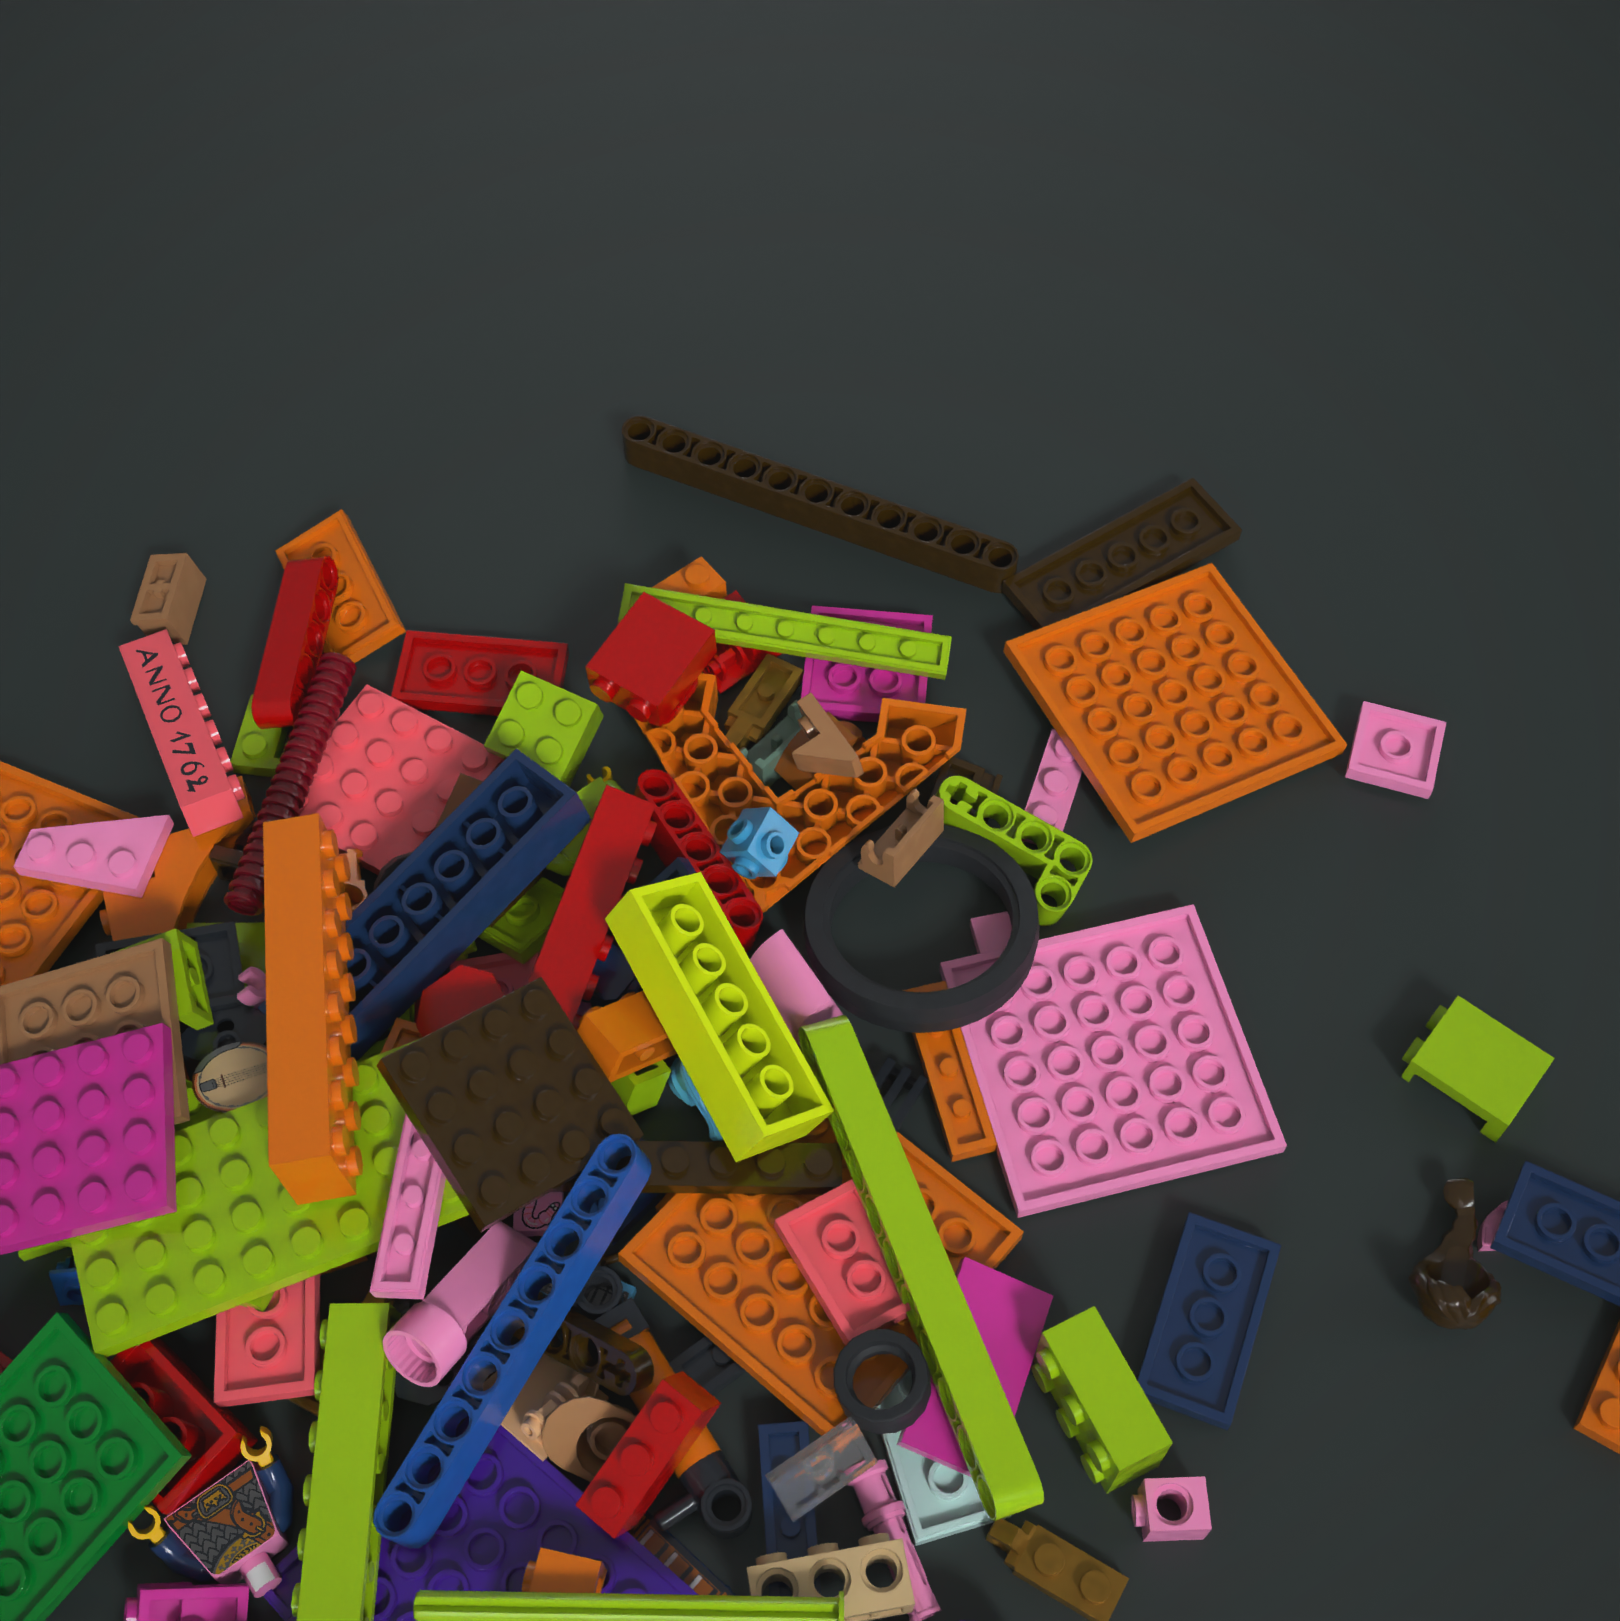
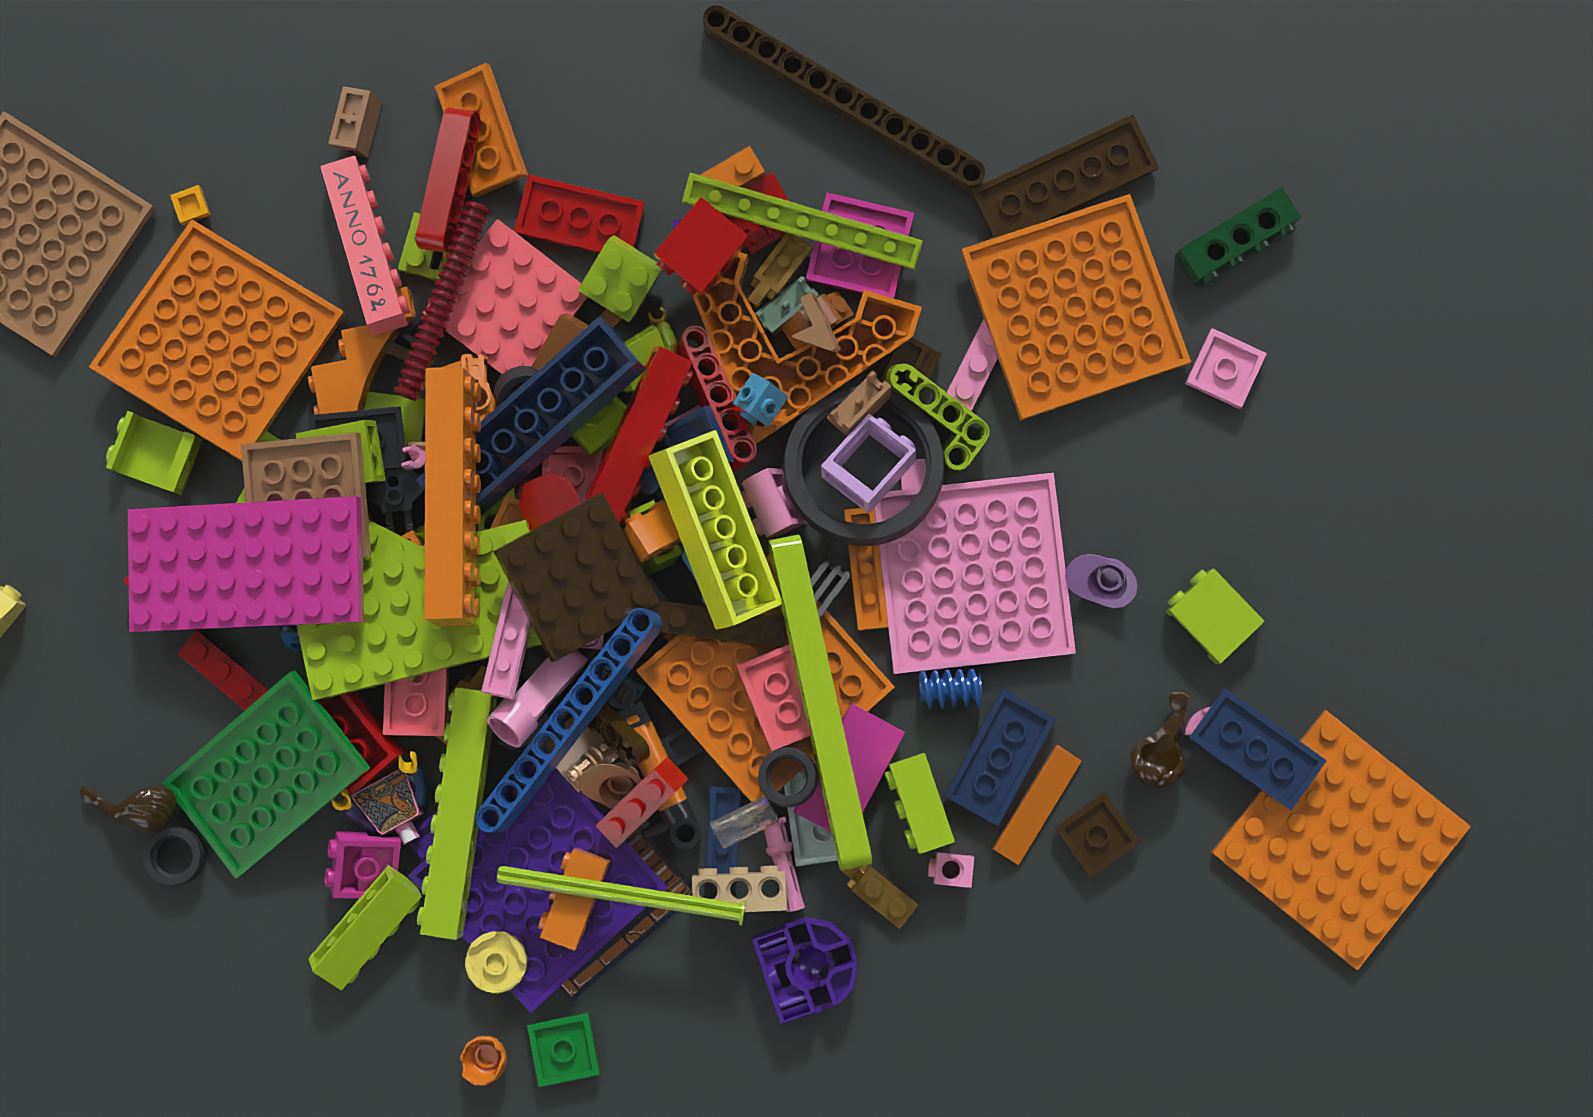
camera: 10 degrees right, 25 degrees up
(97, 855) = (308, 339): bright pink wing -> none
(231, 1076) = (399, 523): tan sticker -> none
(913, 938) = (852, 487): none -> lavender window
(1108, 1221) = (950, 688): none -> blue piece
(1281, 1389) = (1037, 804): none -> orange slope
(1300, 1034) = (1101, 580): none -> medium lavender piece
(1366, 595) = (1275, 207): none -> dark green brick
(1390, 1421) = (1097, 835): none -> dark brown plate

